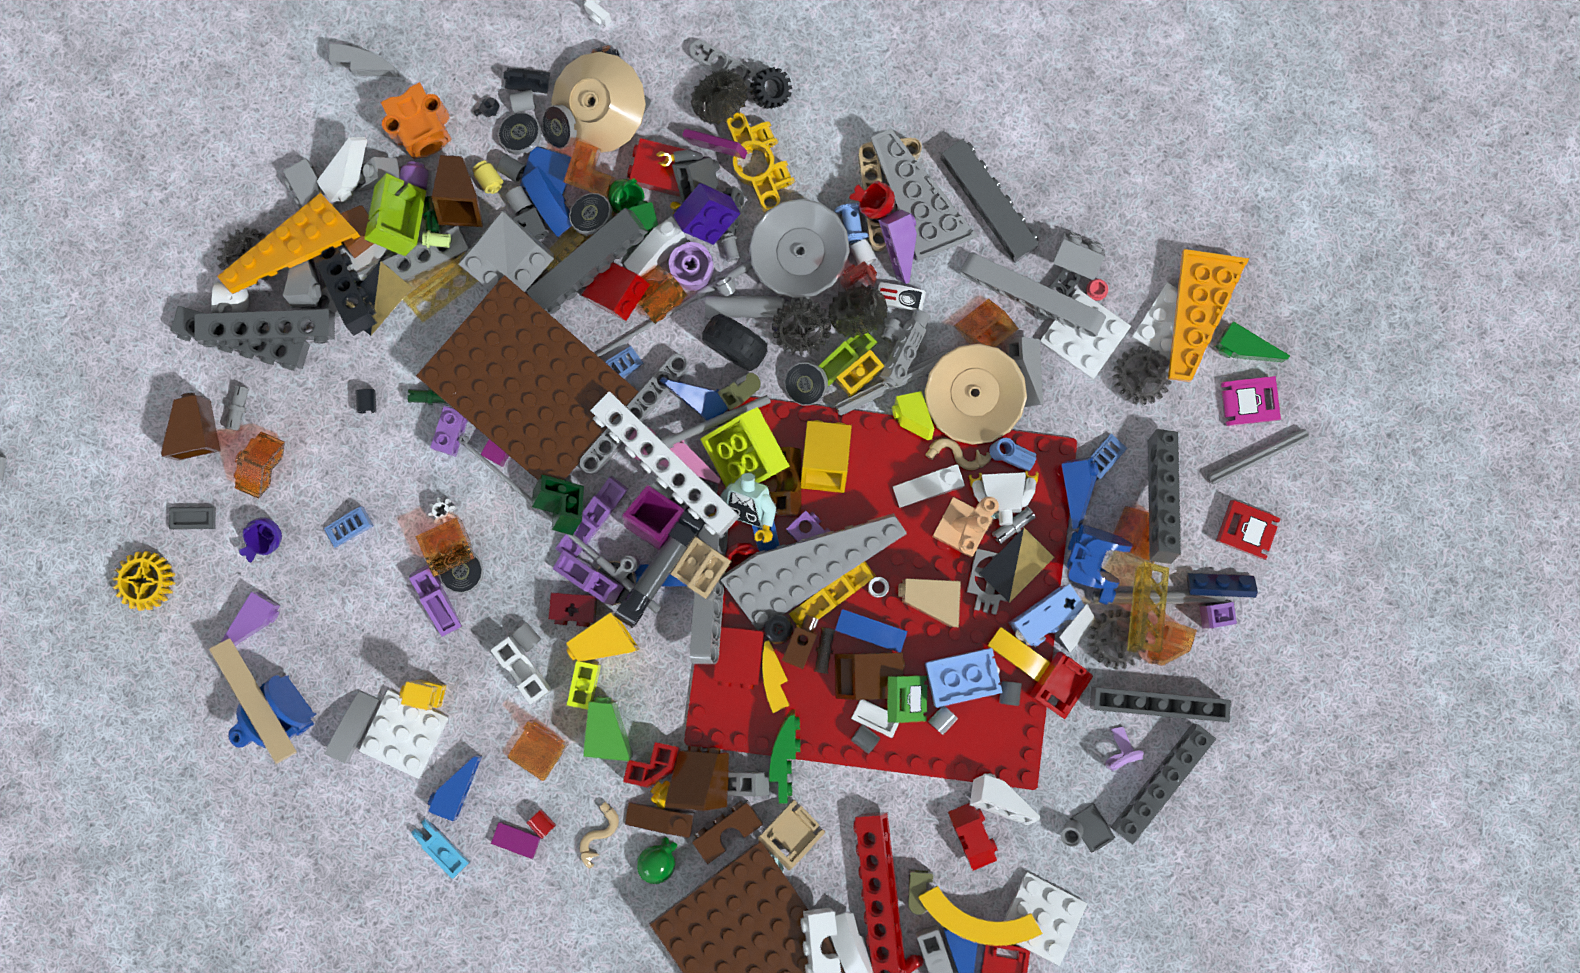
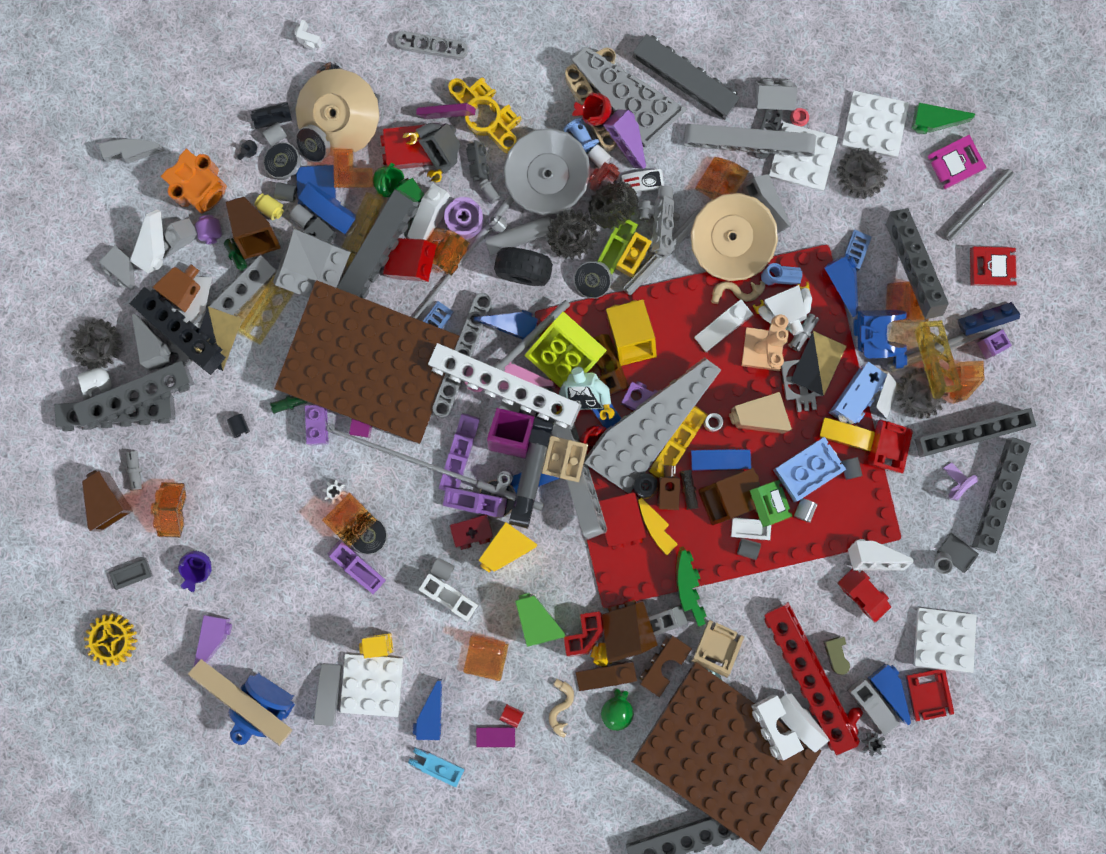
camera: 20 degrees left, 0 degrees up
(292, 243) = (132, 315): light orange wing -> none
(364, 518) = (267, 517): medium blue slope -> none
(395, 218) = (206, 267): lime piece -> none
(436, 239) = (247, 272): yellowish green pin -> none
(561, 499) = (429, 446): dark green brick -> none
(583, 684) = (504, 590): neon yellow brick -> none
(590, 213) = (366, 205): black tile -> none
(706, 214) = (461, 170): dark purple brick -> none
(719, 96) = (435, 71): clear smoke gear -> none
(740, 391) = (541, 304): olive leg -> none
(782, 88) = (466, 55): black tyre -> none
(913, 414) = (690, 272): neon yellow slope -> none
(977, 929) = (898, 667): yellow tile -> none
(1202, 297) = (887, 94): light orange wing -> none

